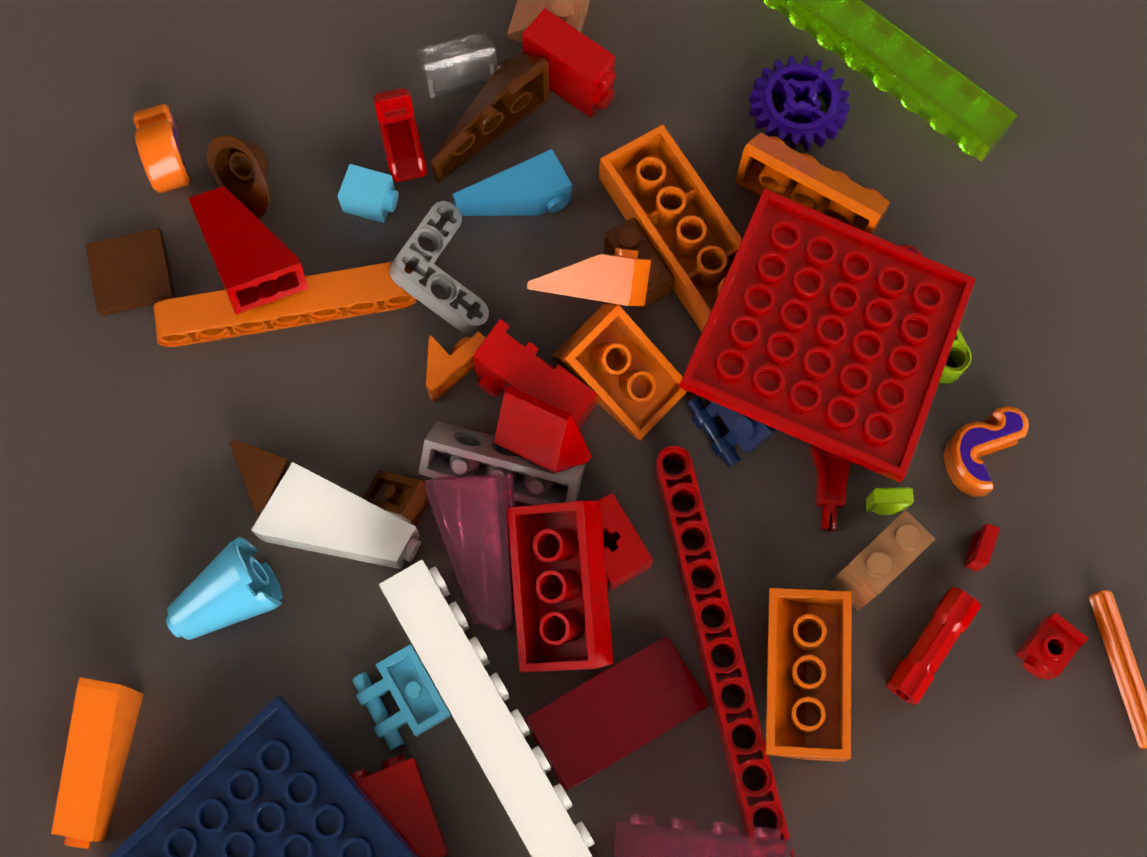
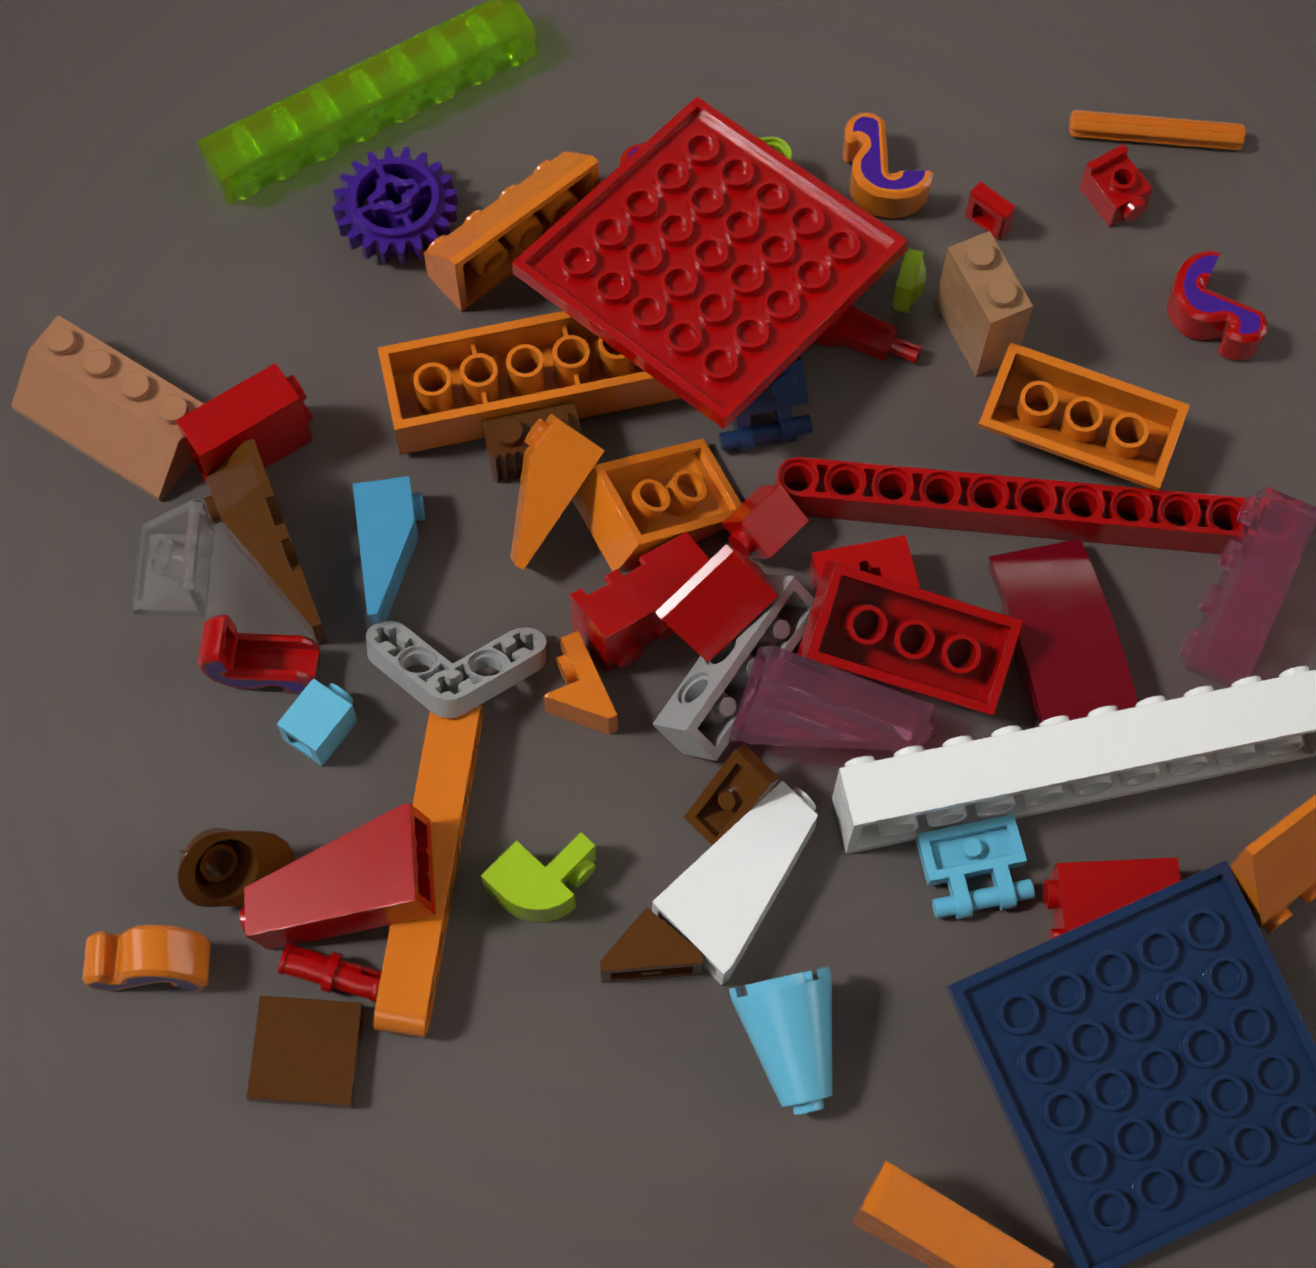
camera: 70 degrees left, 5 degrees down
(188, 262) = (330, 971): none -> red pin
(286, 379) = (537, 891): none -> lime brick
(628, 450) = (764, 522): none -> red brick
(918, 668) = (1103, 321): red axle -> none
(958, 760) = (1209, 315): none -> red animal

